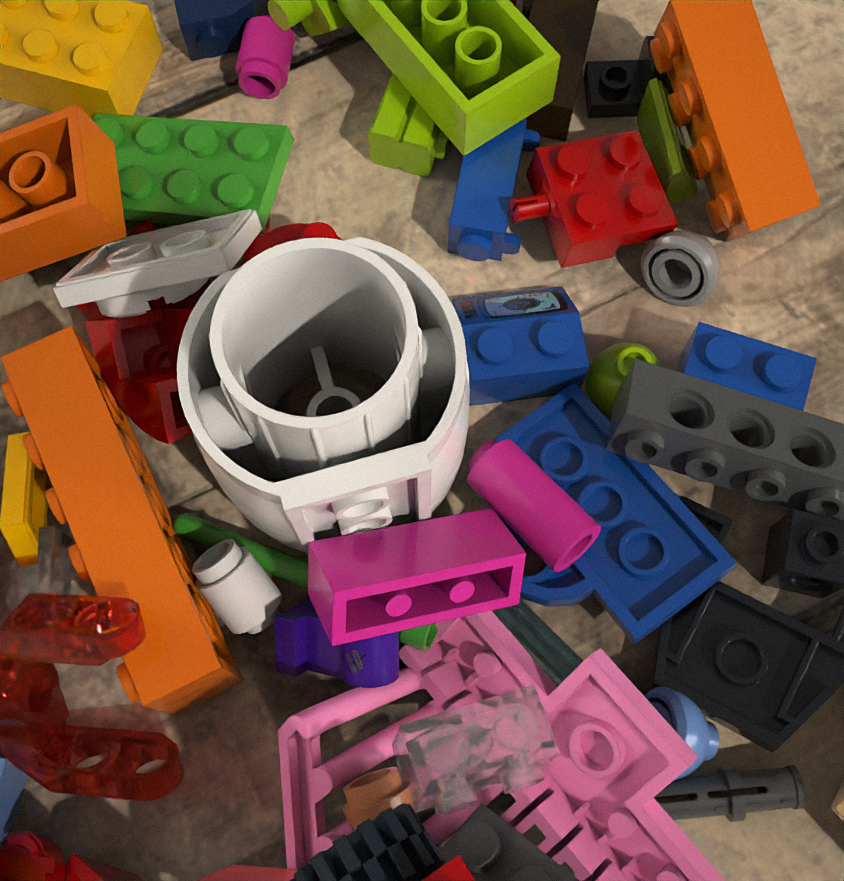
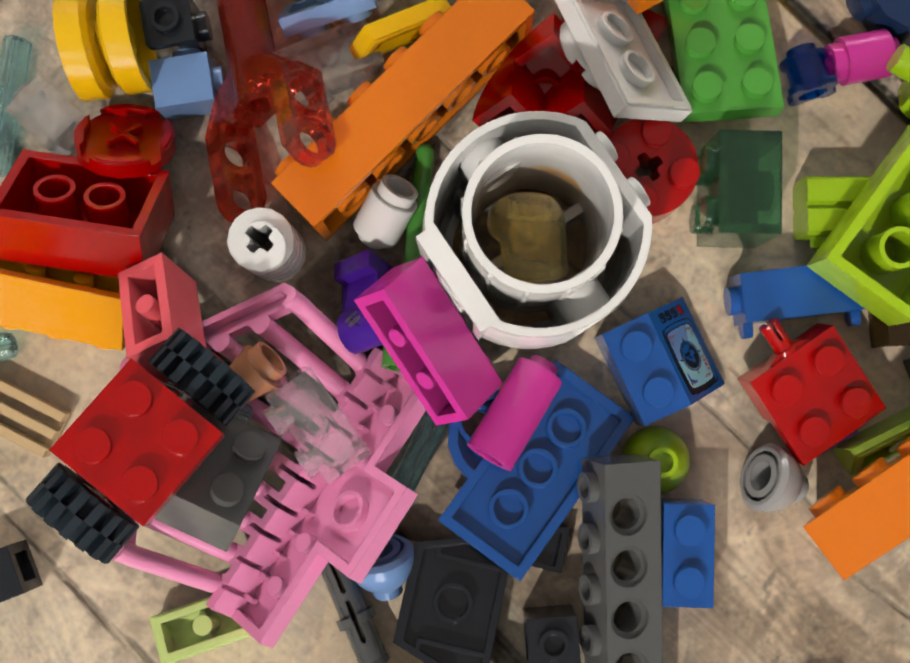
camera: 75 degrees right, 15 degrees up
(197, 740) = (251, 233): none -> white piece
(261, 102) = (807, 74): none -> clear blue brick
(329, 376) = (530, 236): none -> clear yellow hair
(358, 187) = (739, 189): none -> clear green brick

